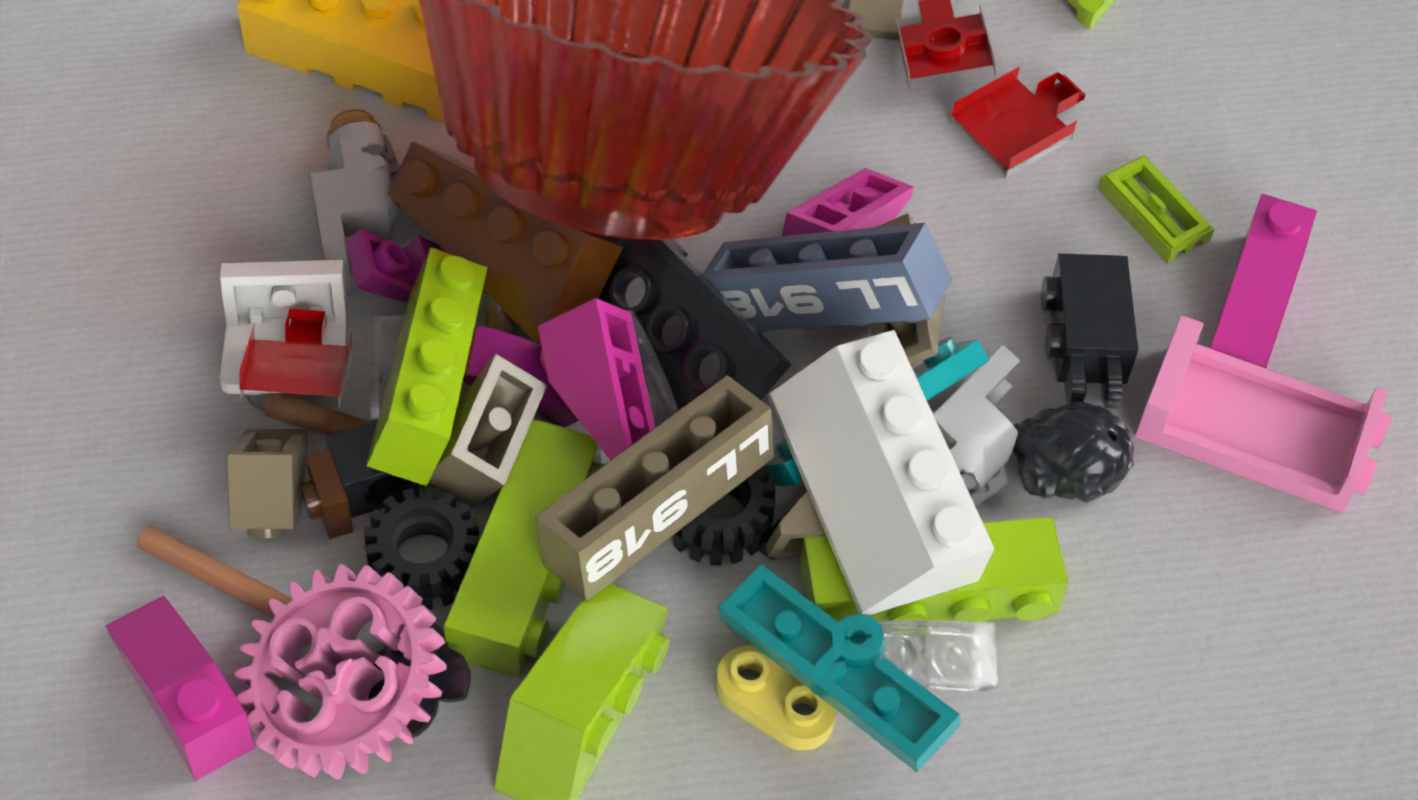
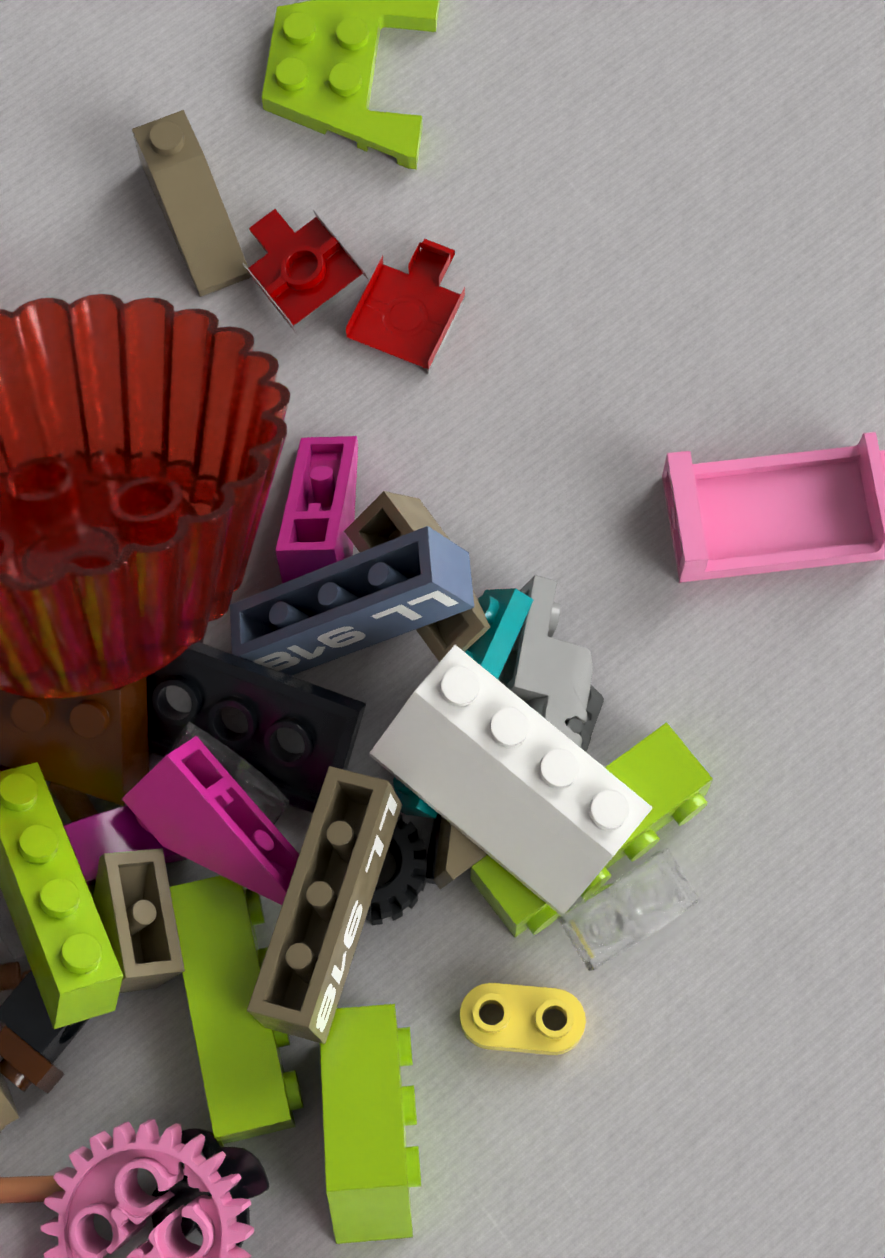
camera: 25 degrees left, 15 degrees up
(416, 518) = (104, 1050): black tyre -> none
(841, 665) = (567, 970): teal hinge -> none
(1073, 452) = (642, 637): black hair -> none
(1091, 324) = (591, 500): black hinge -> none
(1148, 213) = (569, 355): lime tile -> none
(1263, 280) = (711, 371): dark pink slope -> none

